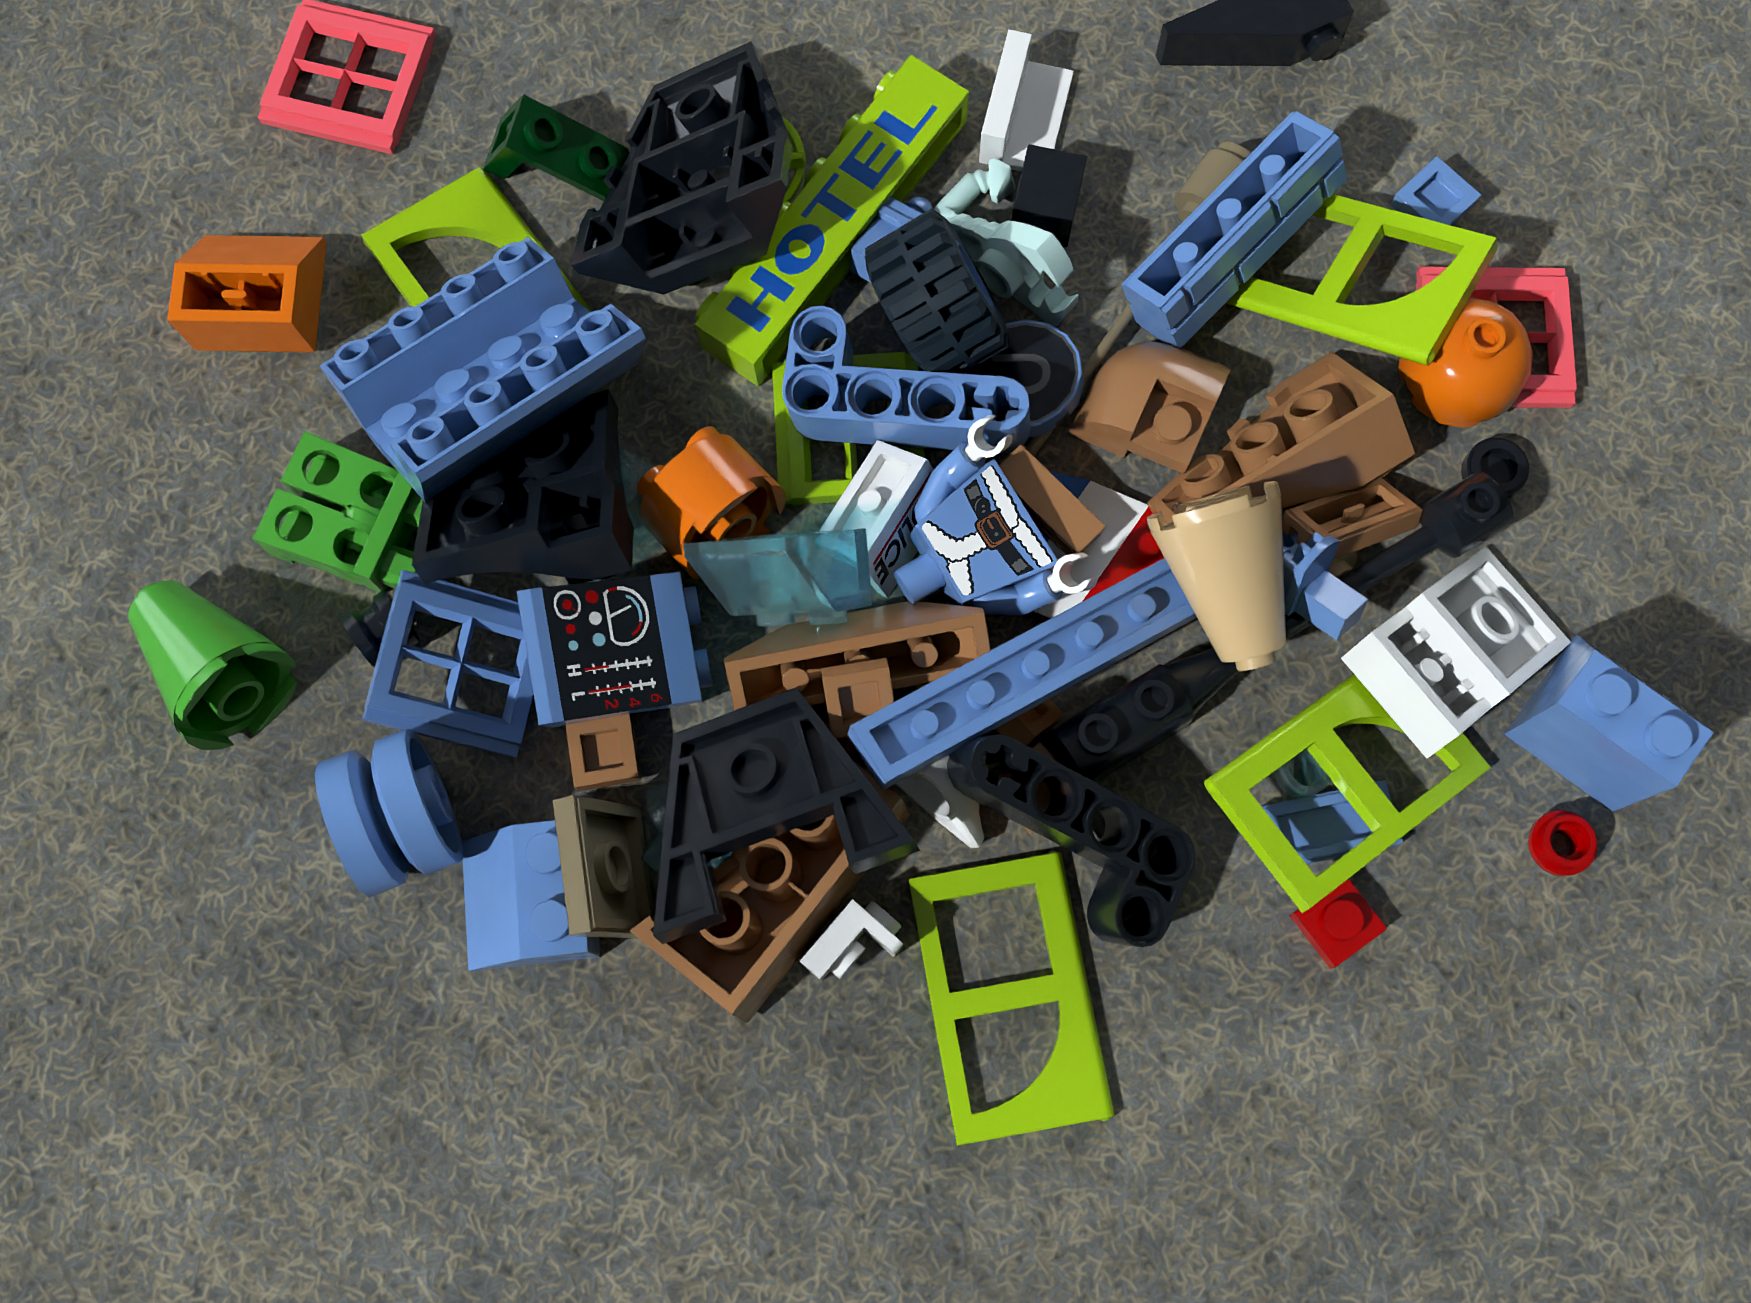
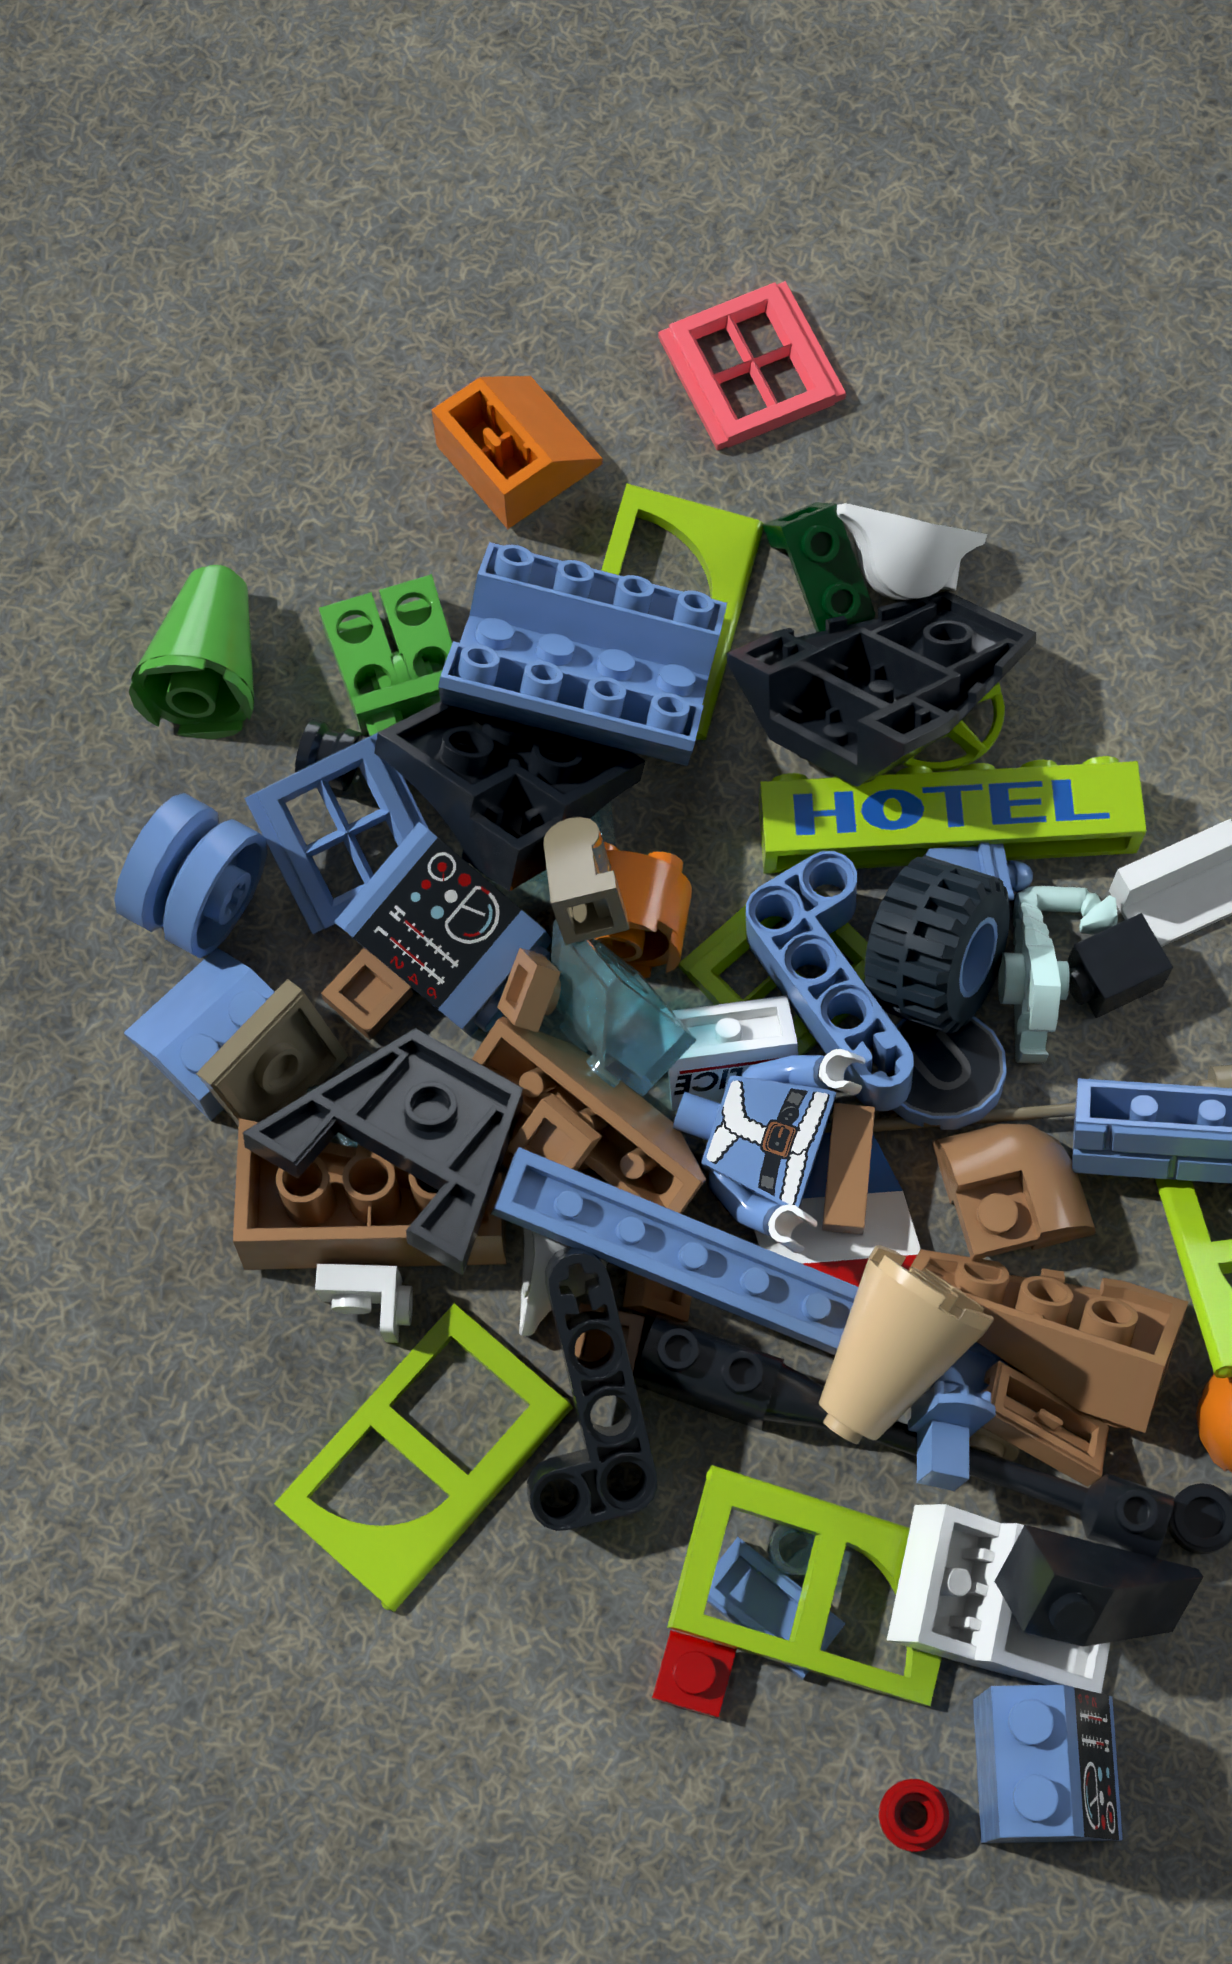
camera: 50 degrees right, 5 degrees down
(601, 84) = (906, 555): none -> white hat
(691, 514) = (581, 882): none -> dark tan leg
(719, 621) = (530, 990): none -> medium nougat plate
(1509, 586) = (1091, 1590): none -> black slope

